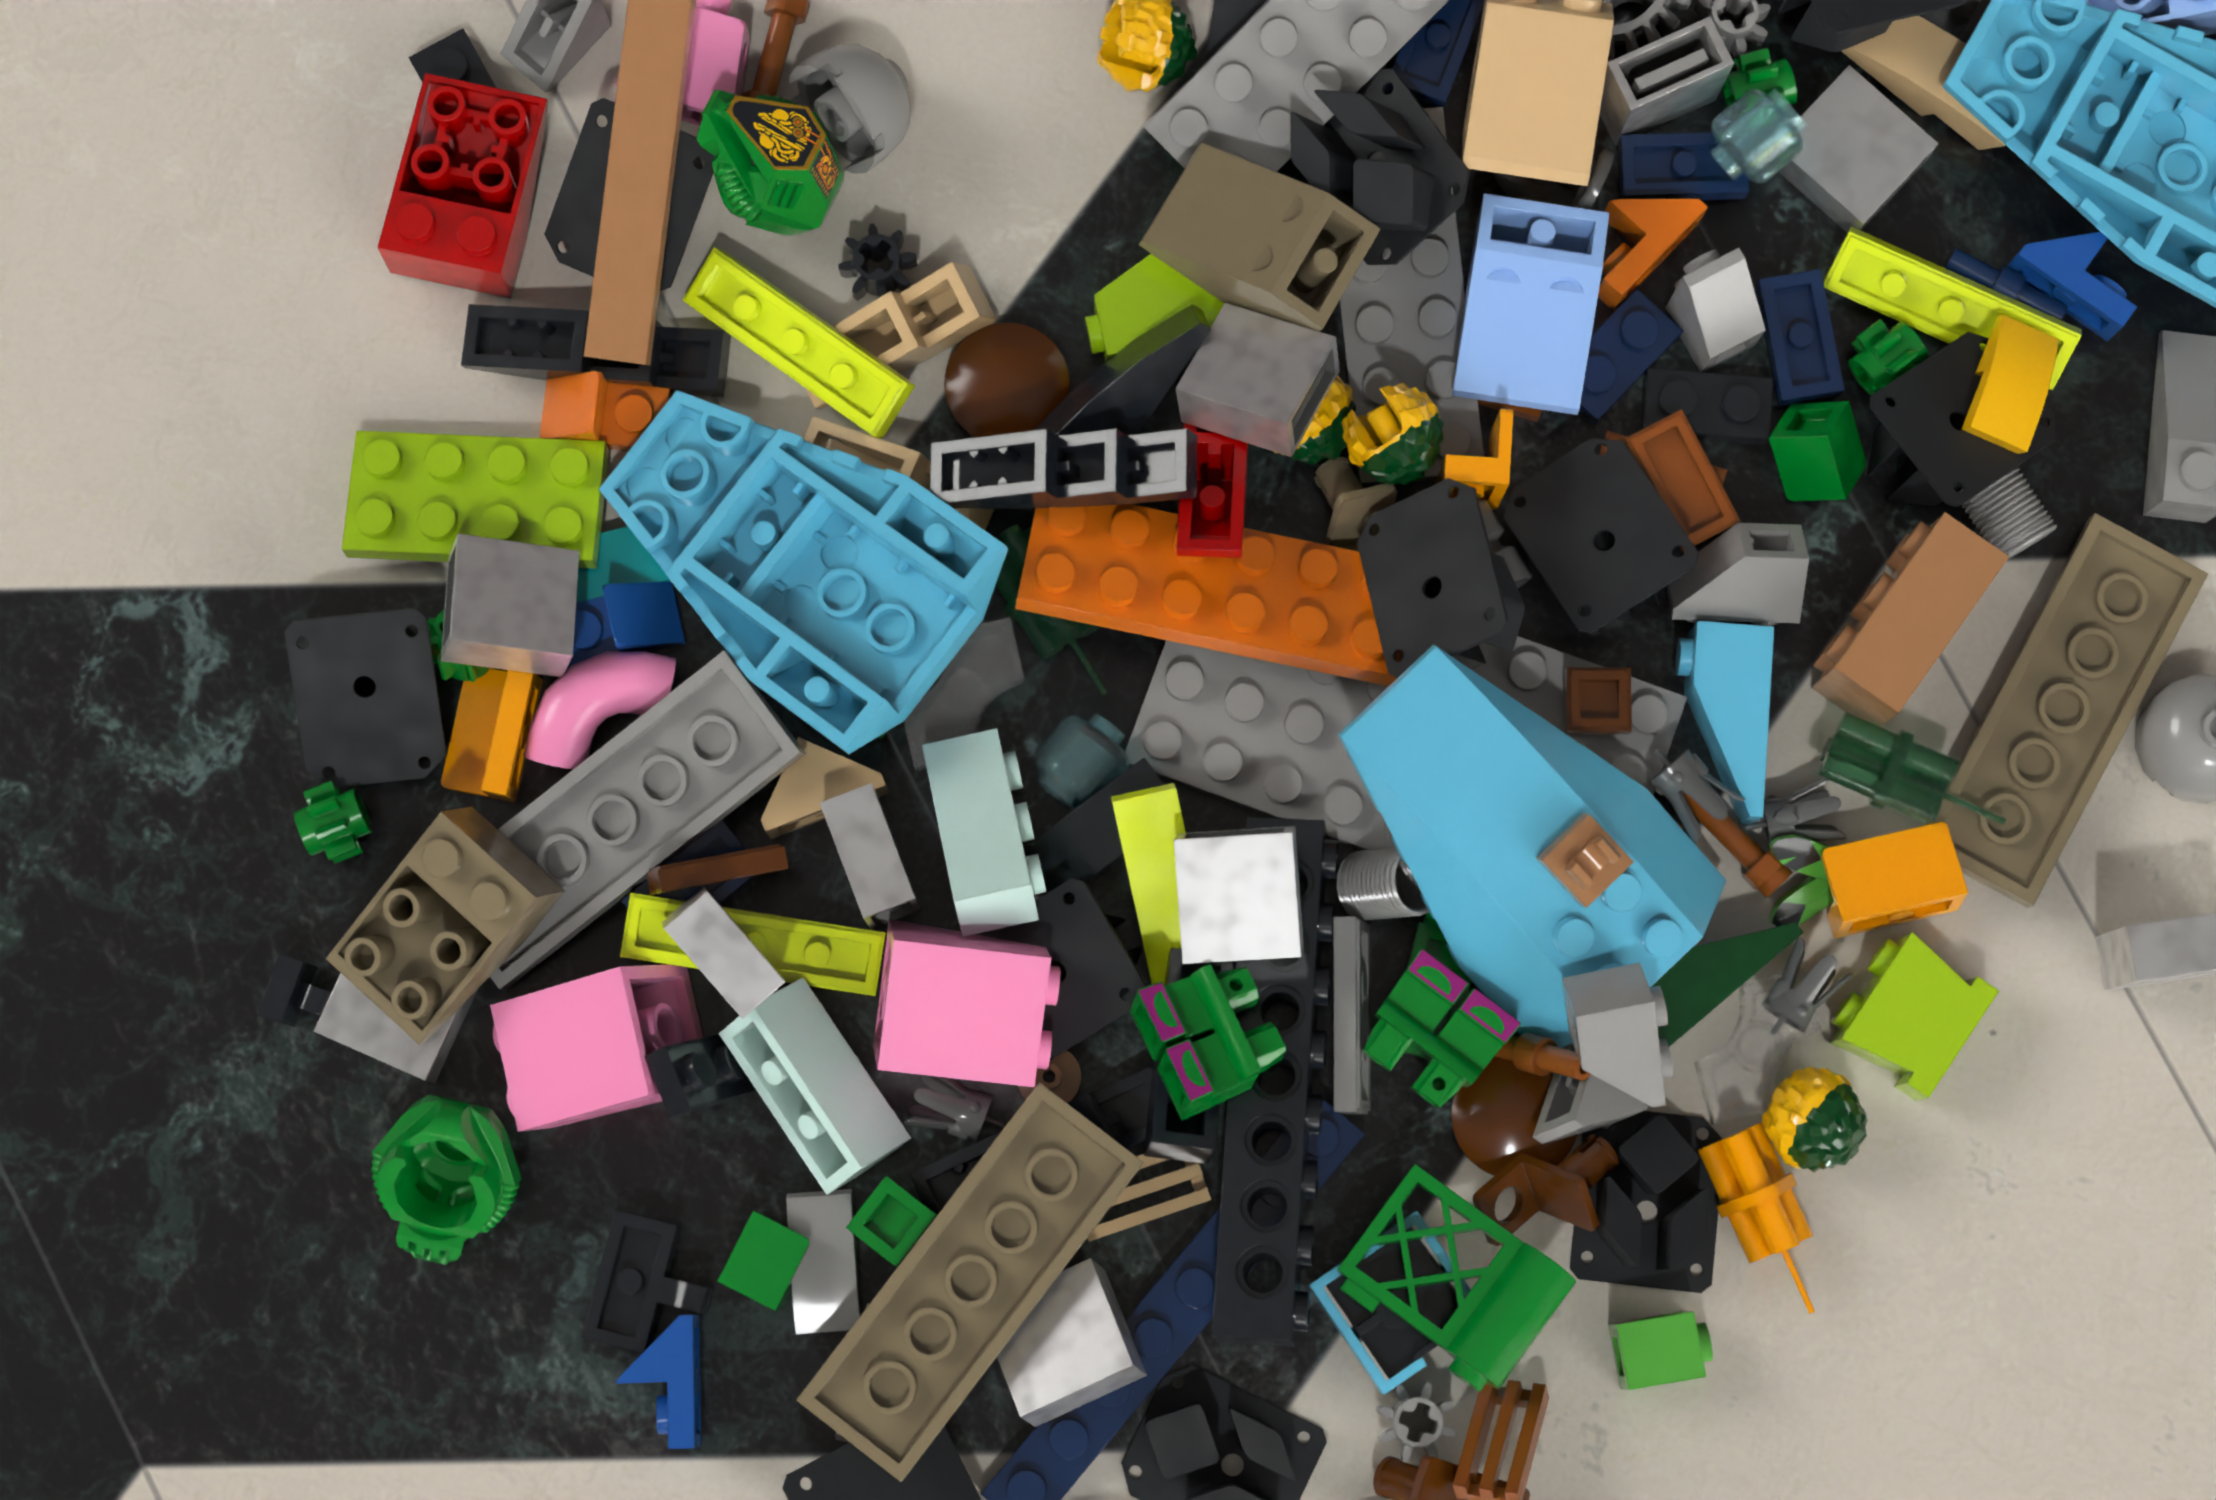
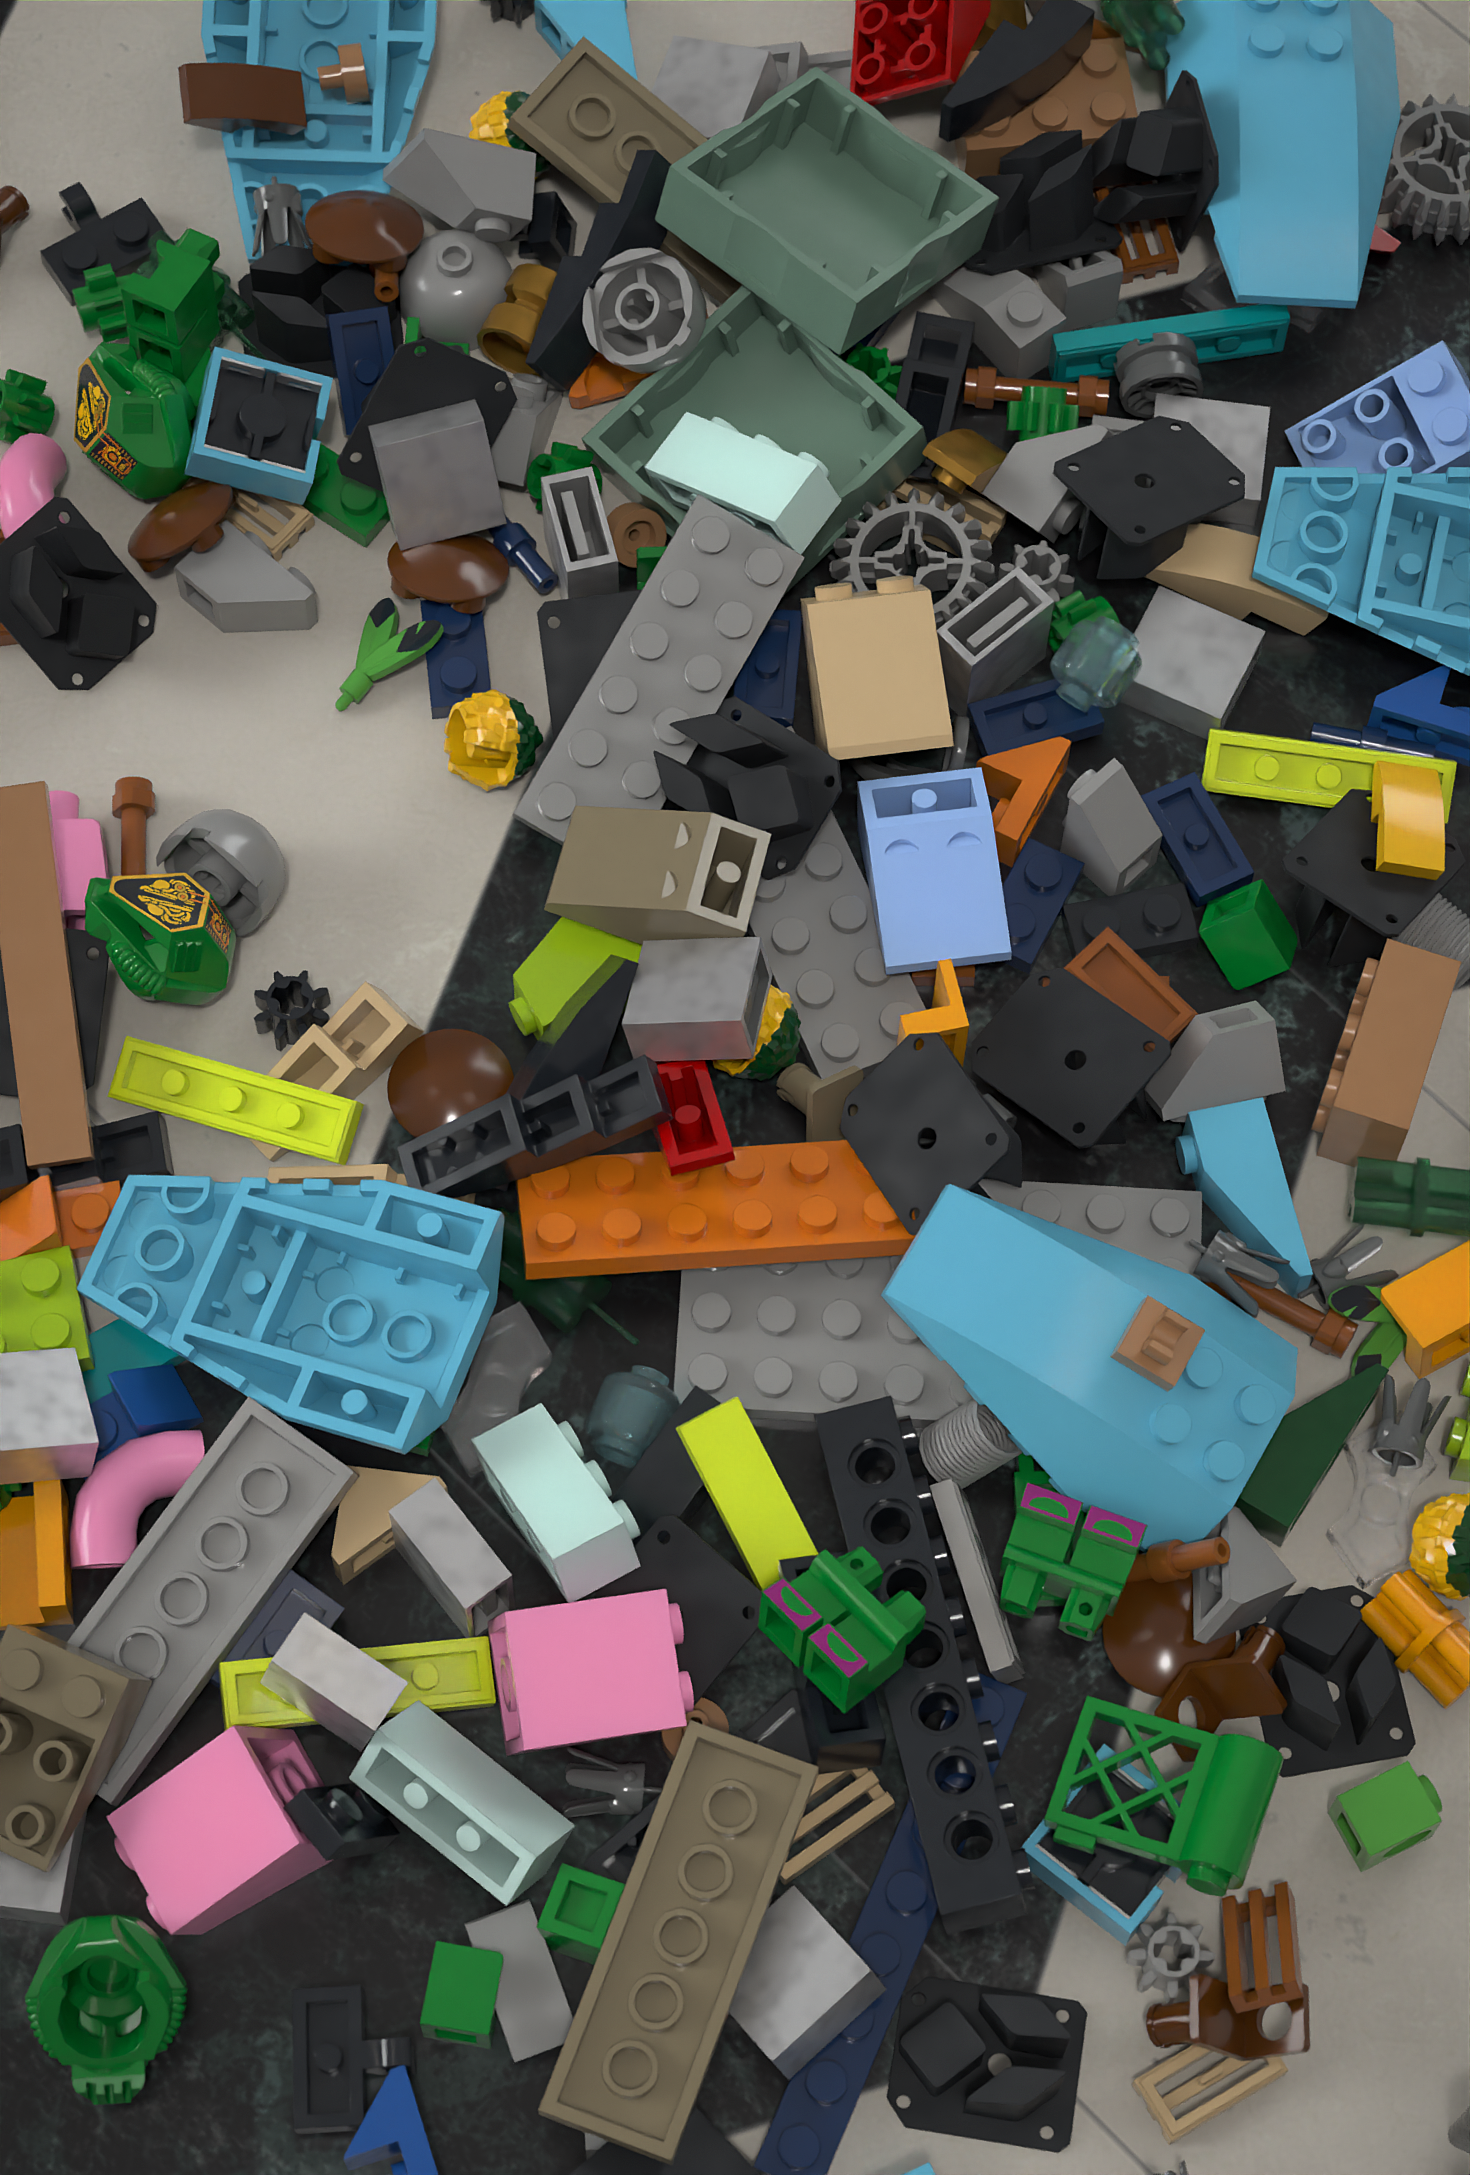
camera: 20 degrees left, 15 degrees down
(716, 869) = (322, 1602): reddish brown tile -> none
(1238, 895) = (832, 1478): flat silver piece -> none
(1396, 438) = (846, 1020): piece -> none
(1597, 700) = (1119, 1212): reddish brown tile -> none
(1615, 1030) = (1242, 1500): light grey slope -> none
(1885, 355) = (1279, 830): green gear -> none

